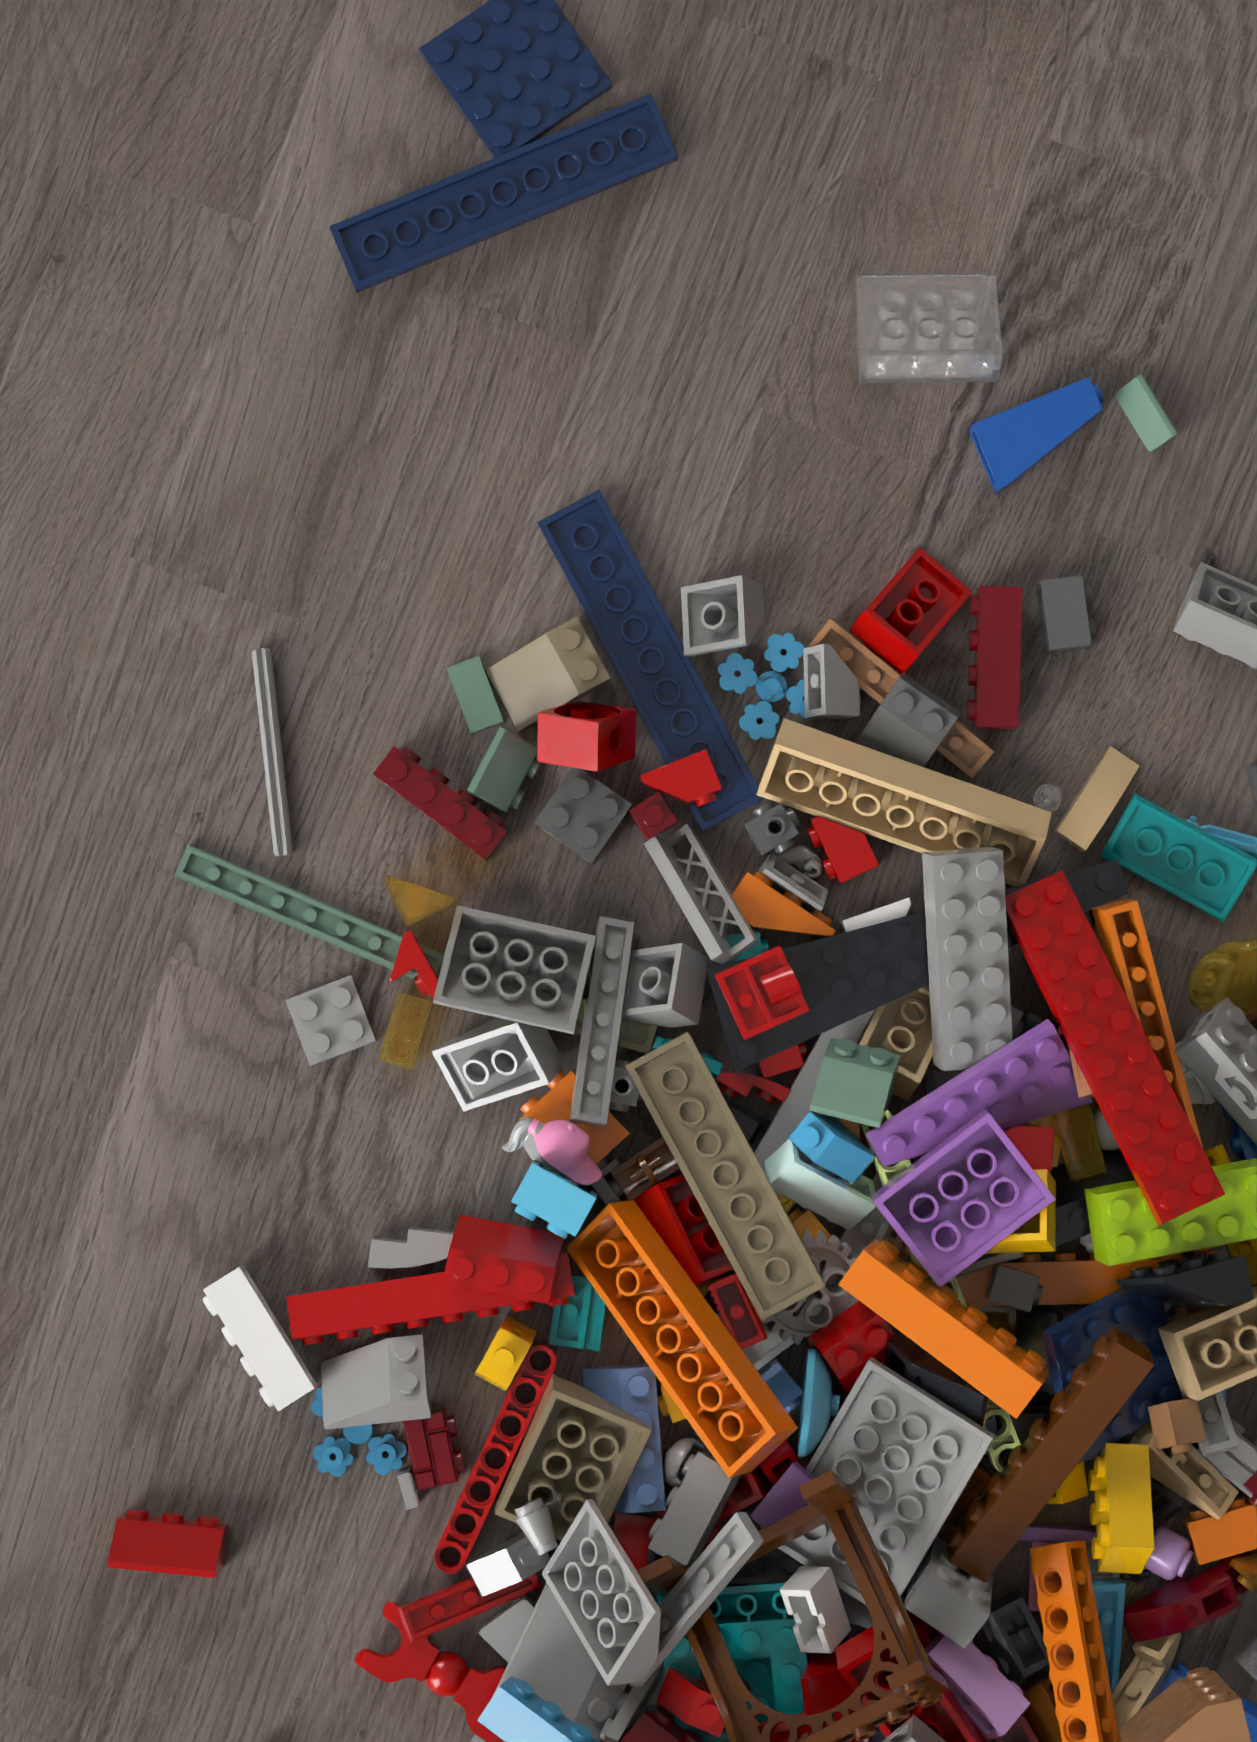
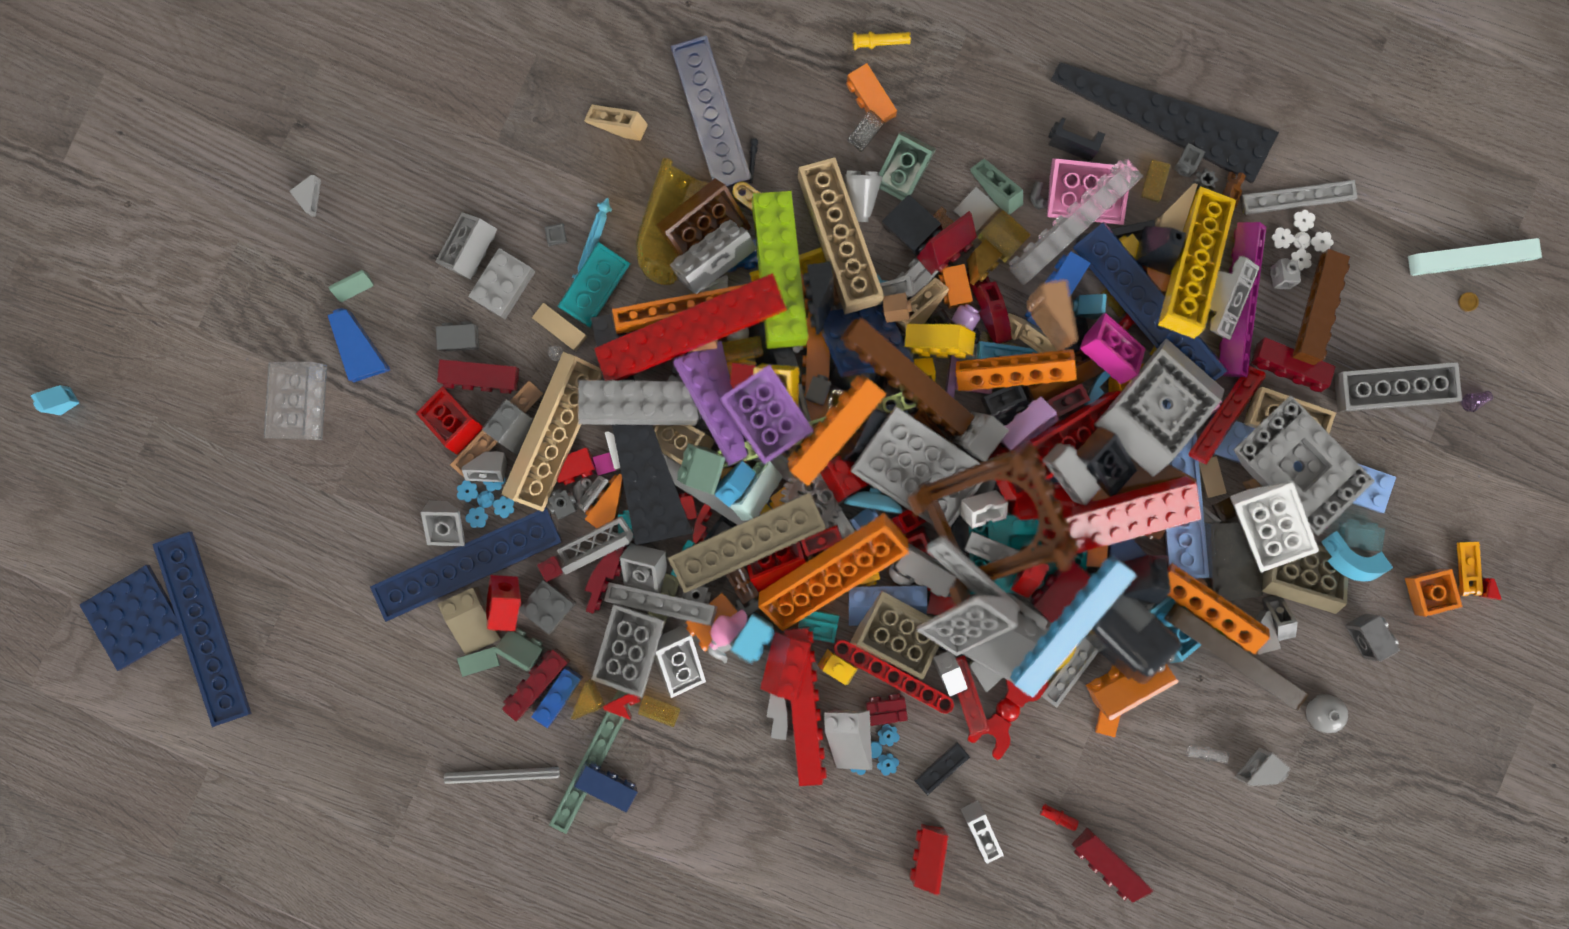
camera: 80 degrees left, 0 degrees up
(221, 1638) = (982, 832): none -> light grey slope
(259, 1337) = (820, 802): white brick -> none
(265, 944) = (606, 786): none -> dark blue brick
(330, 1020) = (651, 751): light grey plate -> none
(331, 1557) = (942, 768): none -> black tile
(408, 1488) = (905, 725): light grey tile -> none
(420, 844) = (557, 697): none -> blue brick
(537, 1525) = (929, 657): light grey cone -> none
(661, 919) = (607, 568): none -> dark red slope
(686, 779) = (531, 549): red slope -> none
(744, 1620) = (987, 547): none -> light grey plate
(762, 992) = (649, 516): red plate -> none
(783, 1497) = (923, 523): medium lavender tile -> none
(850, 899) = (604, 464): none -> dark pink tile
(1169, 688) = (502, 283): none -> light grey brick

